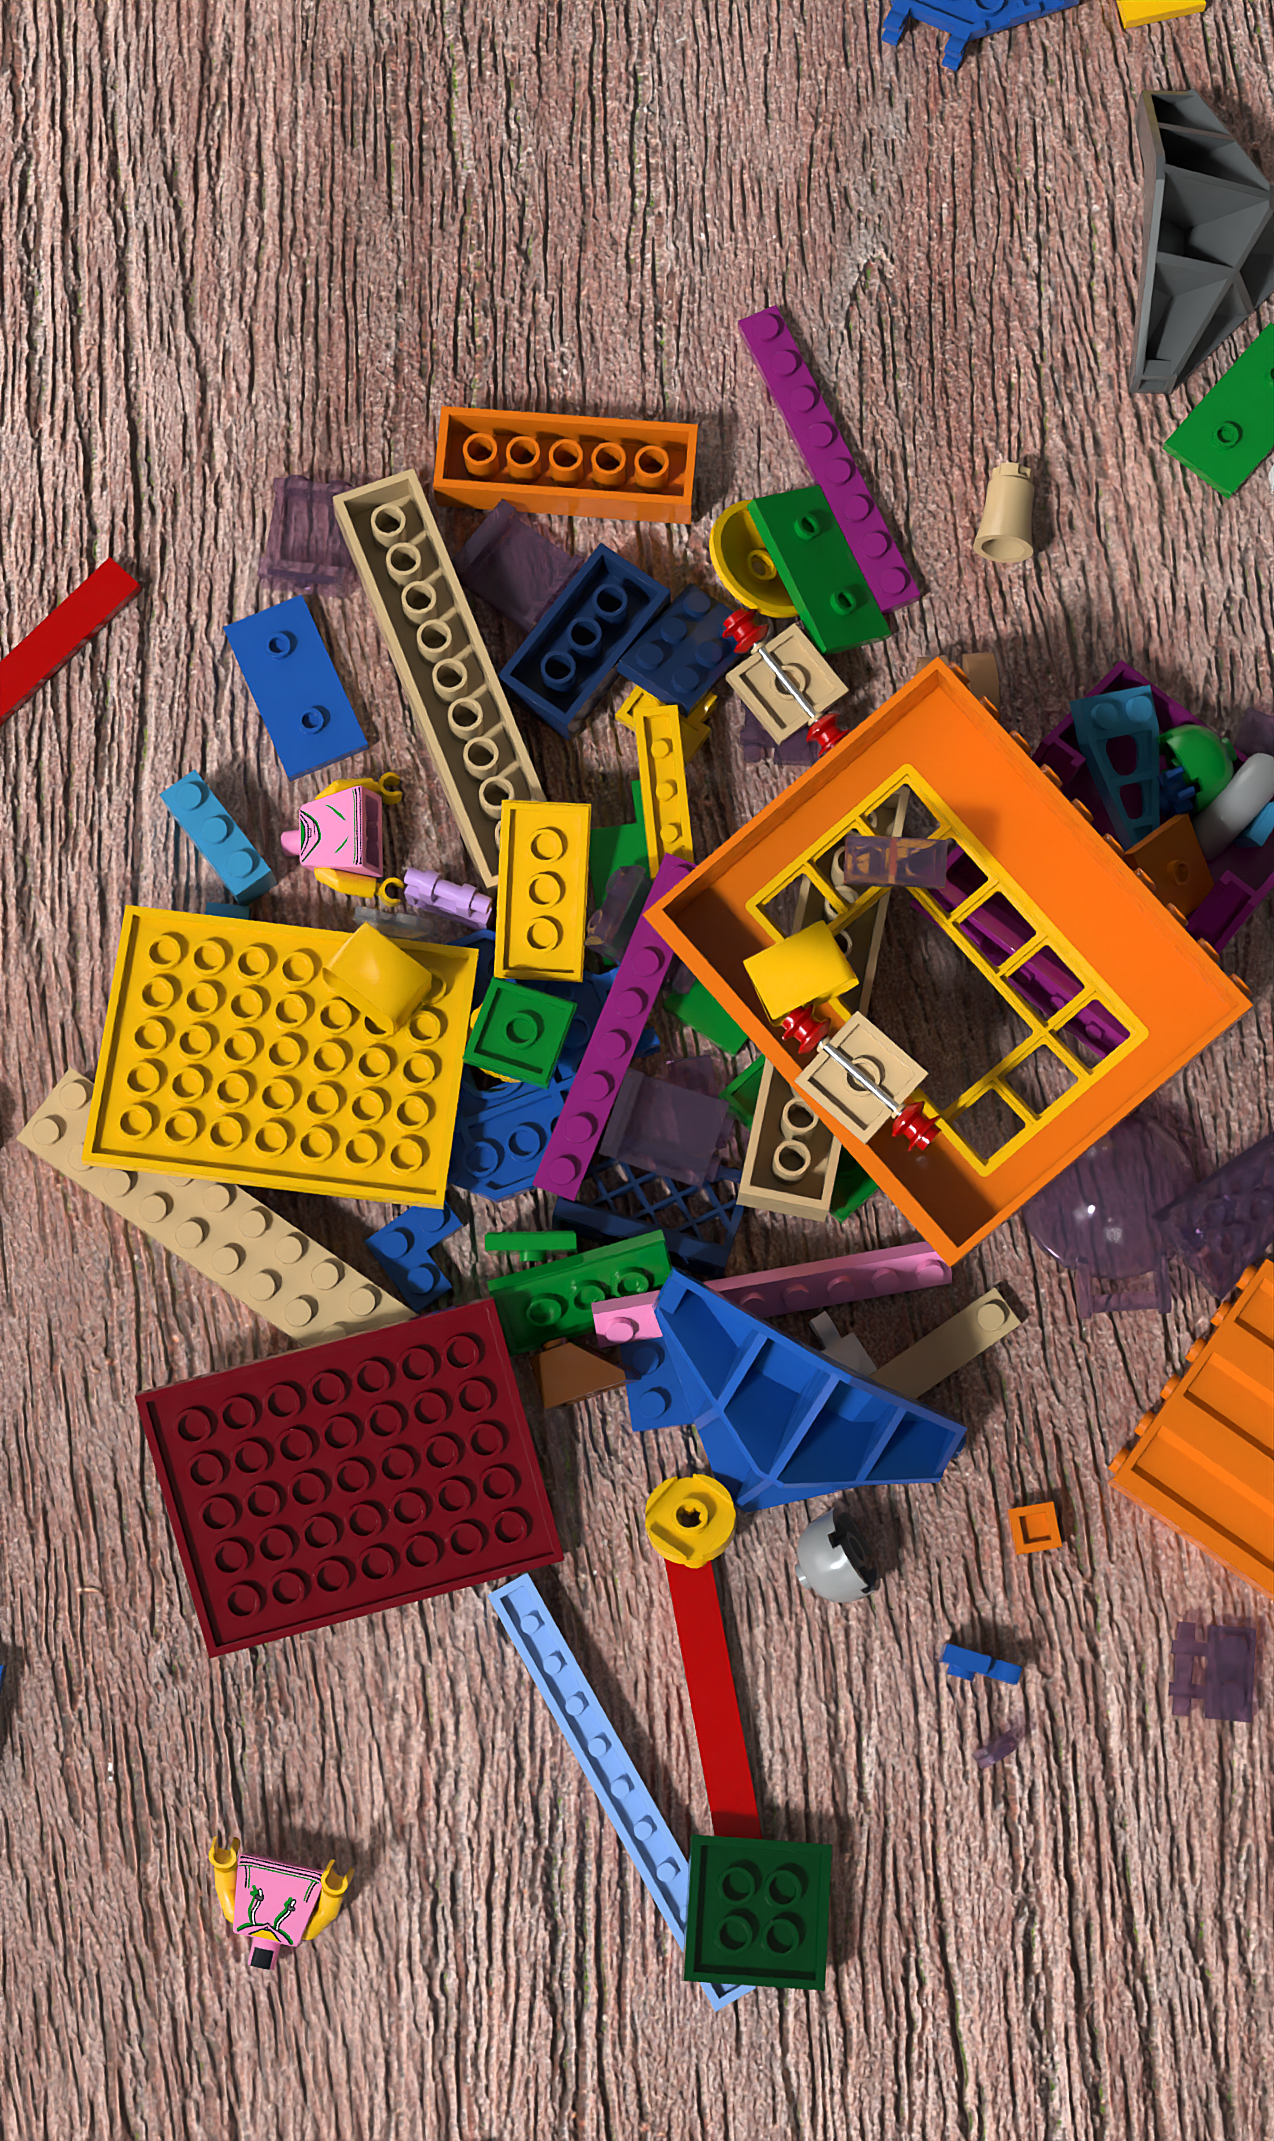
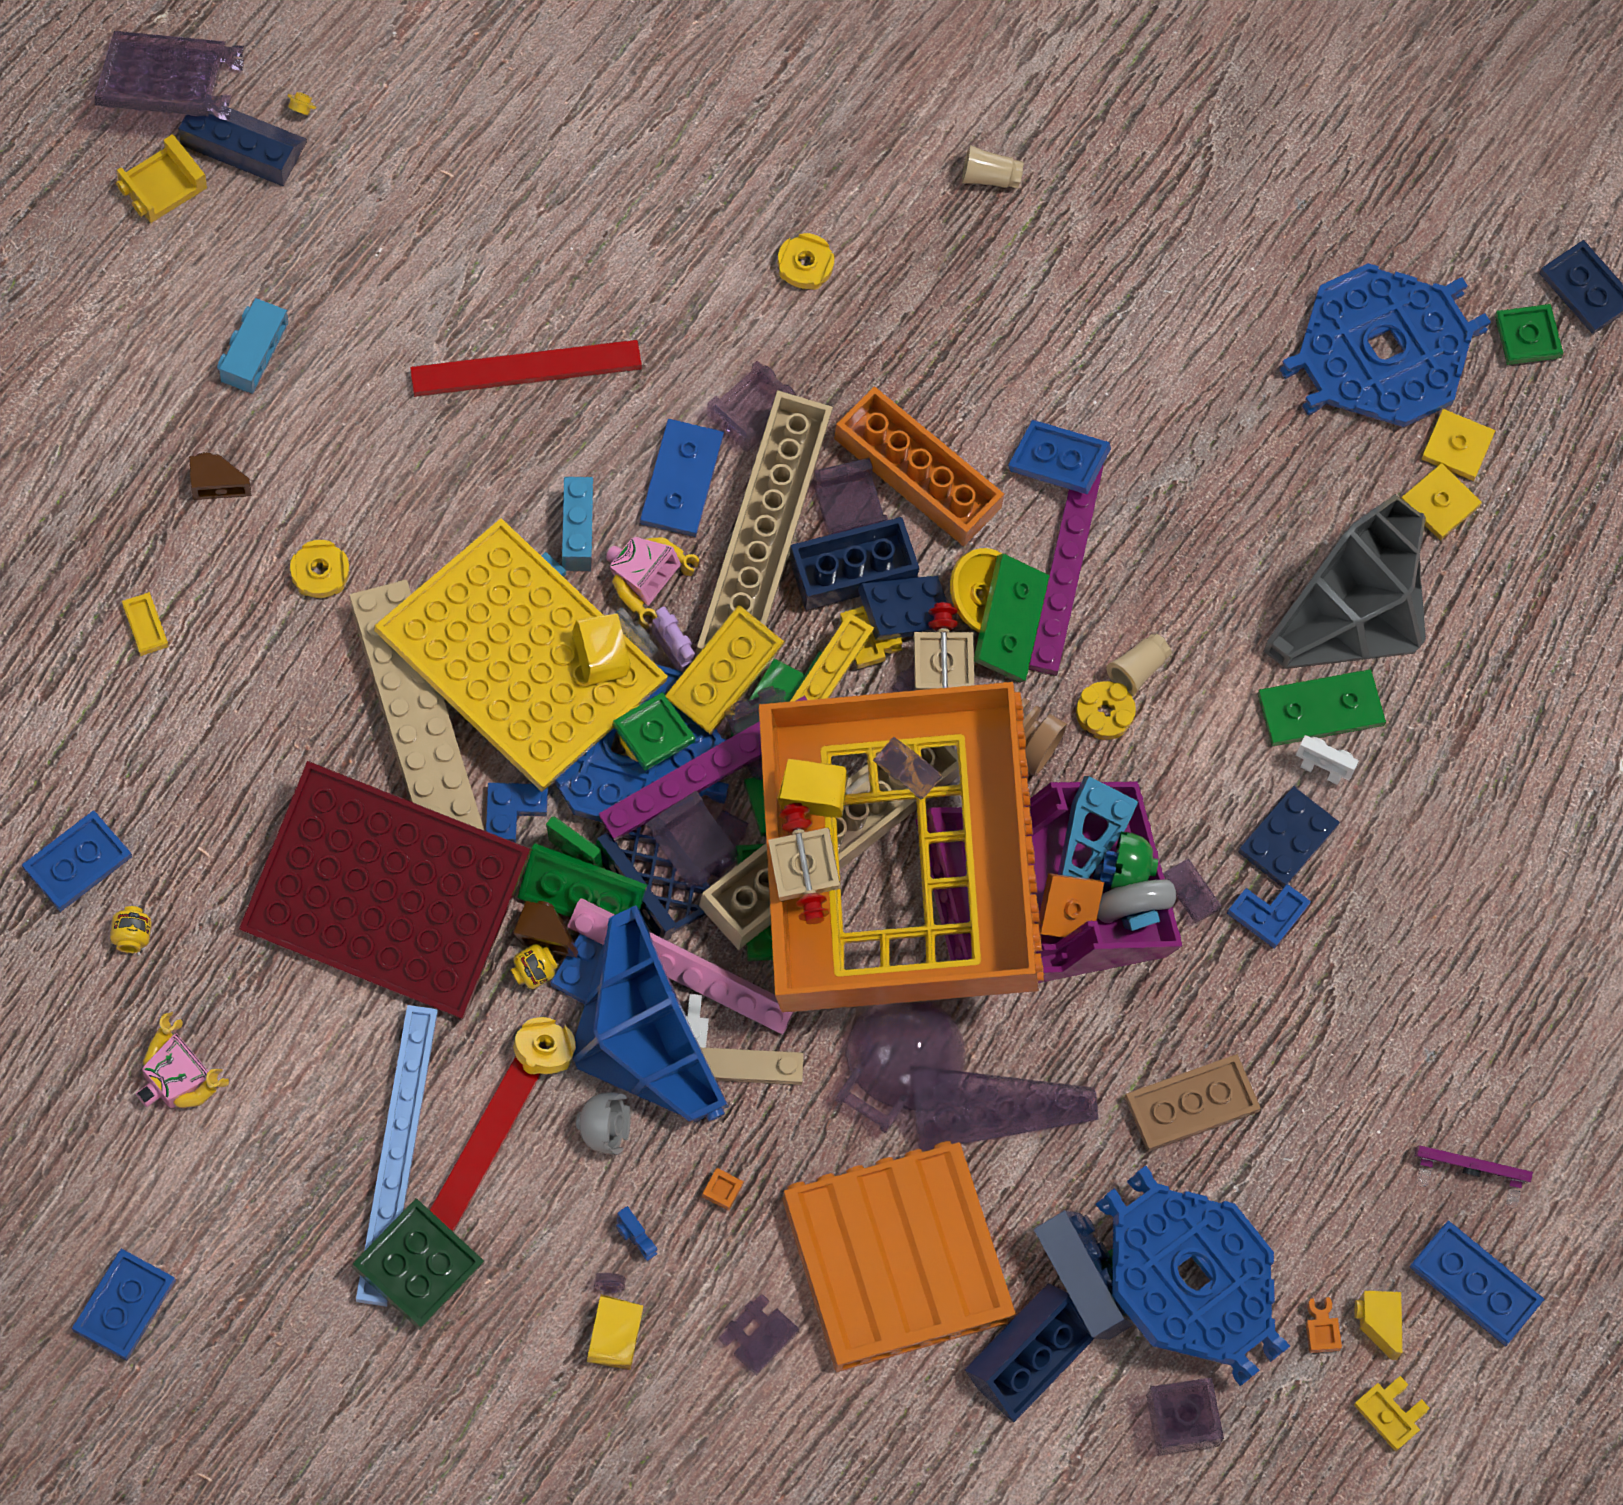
camera: 25 degrees right, 10 degrees down
(79, 1763) = (130, 930): none -> yellow head
(240, 334) = (805, 276): none -> yellow plate
(363, 39) = (991, 169): none -> tan plant
(600, 1429) = (534, 966): none -> yellow head
(720, 331) = (1059, 456): none -> blue plate
(1010, 575) = (1095, 722): none -> yellow plate
(1051, 1808) = (615, 1333): none -> yellow piece
(1190, 57) = (1442, 501): none -> yellow plate

